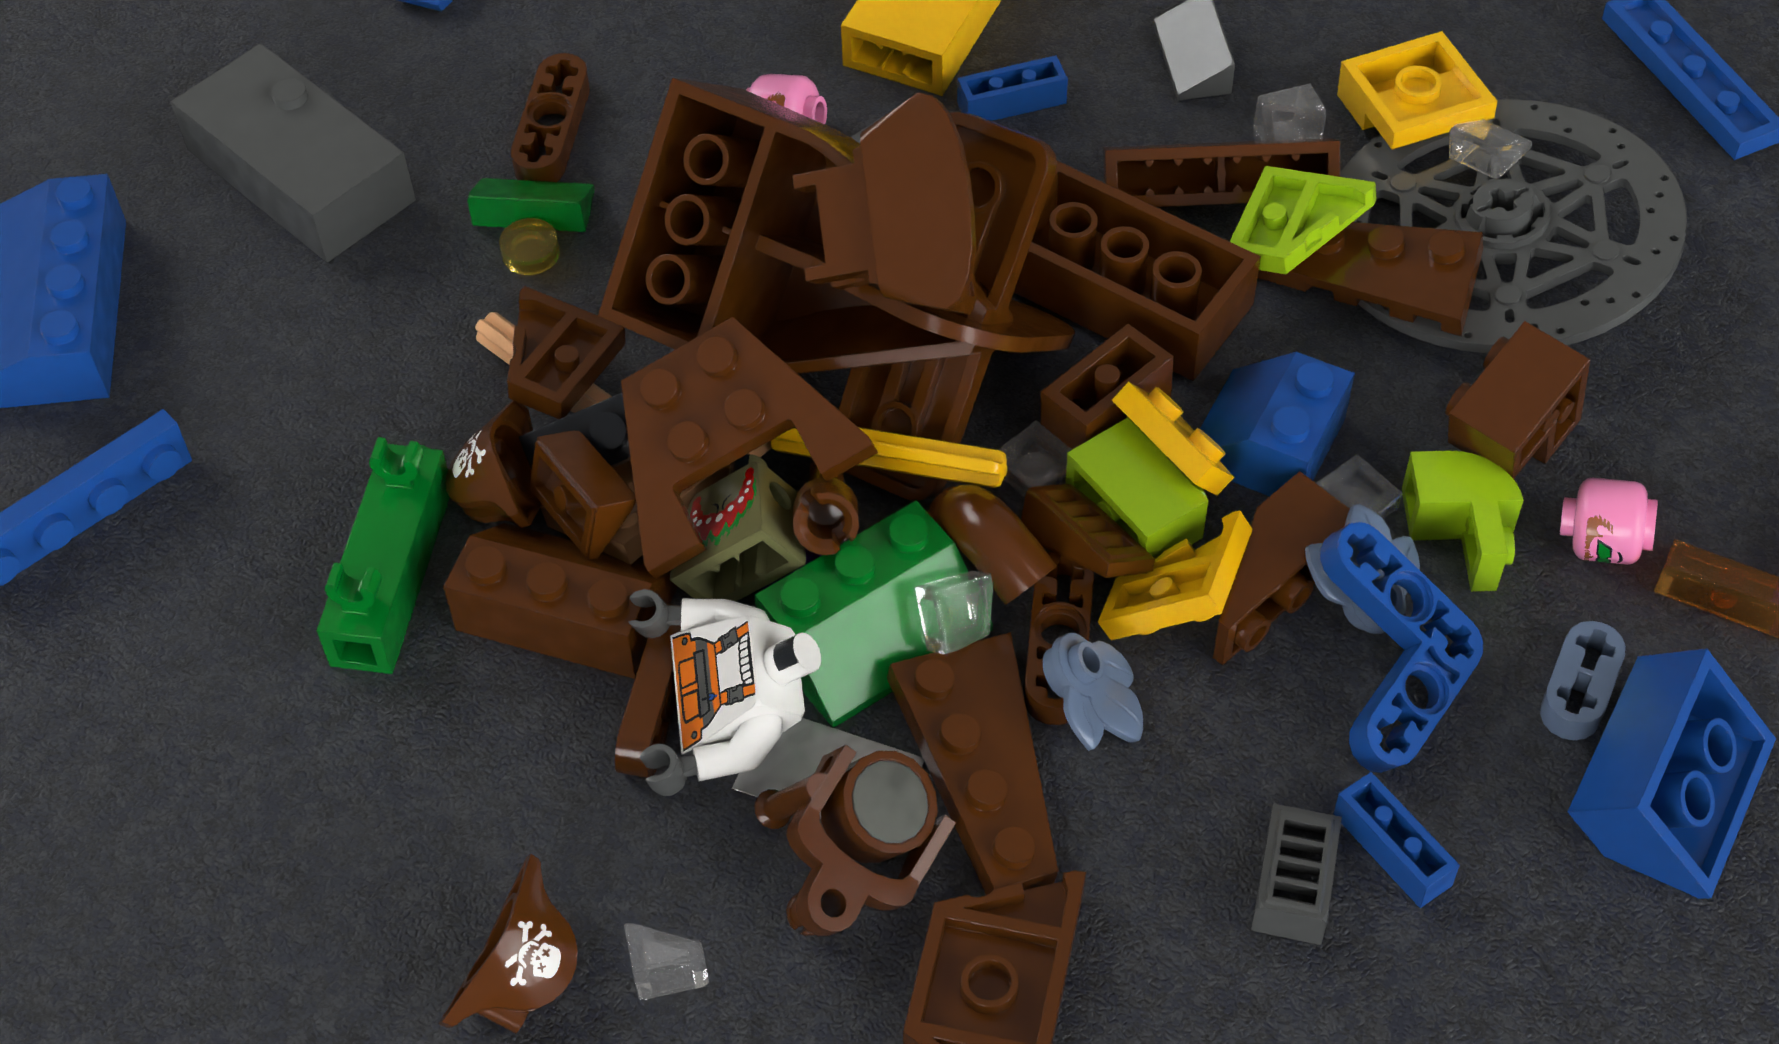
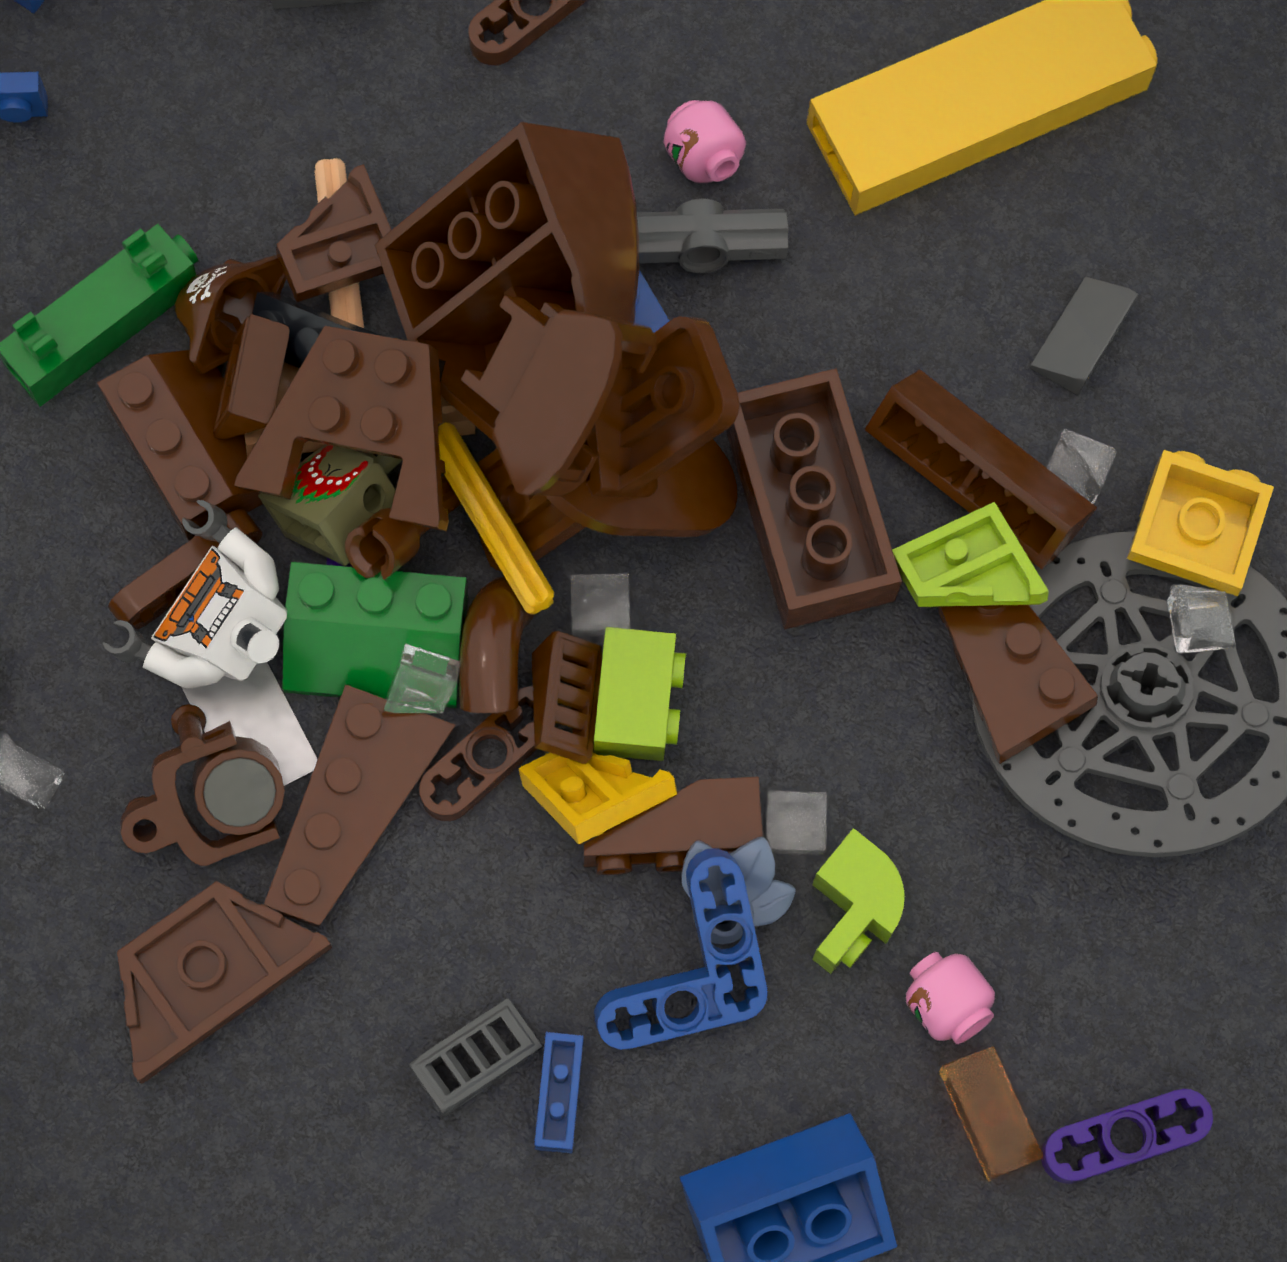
camera: 35 degrees right, 20 degrees up
(506, 201) = (456, 74): green slope -> none
(529, 246) = (420, 115): clear yellow tile -> none
(1013, 89) = (902, 258): blue piece -> none
(1081, 399) = (691, 597): reddish brown brick -> none
(1094, 689) = (462, 826): sand blue plate -> none
(1188, 449) = (696, 676): yellow wing -> none
(1278, 419) = (796, 717): blue slope -> none
(1521, 400) = (960, 858): reddish brown brick -> none
(1595, 684) = (801, 1079): sand blue beam -> none

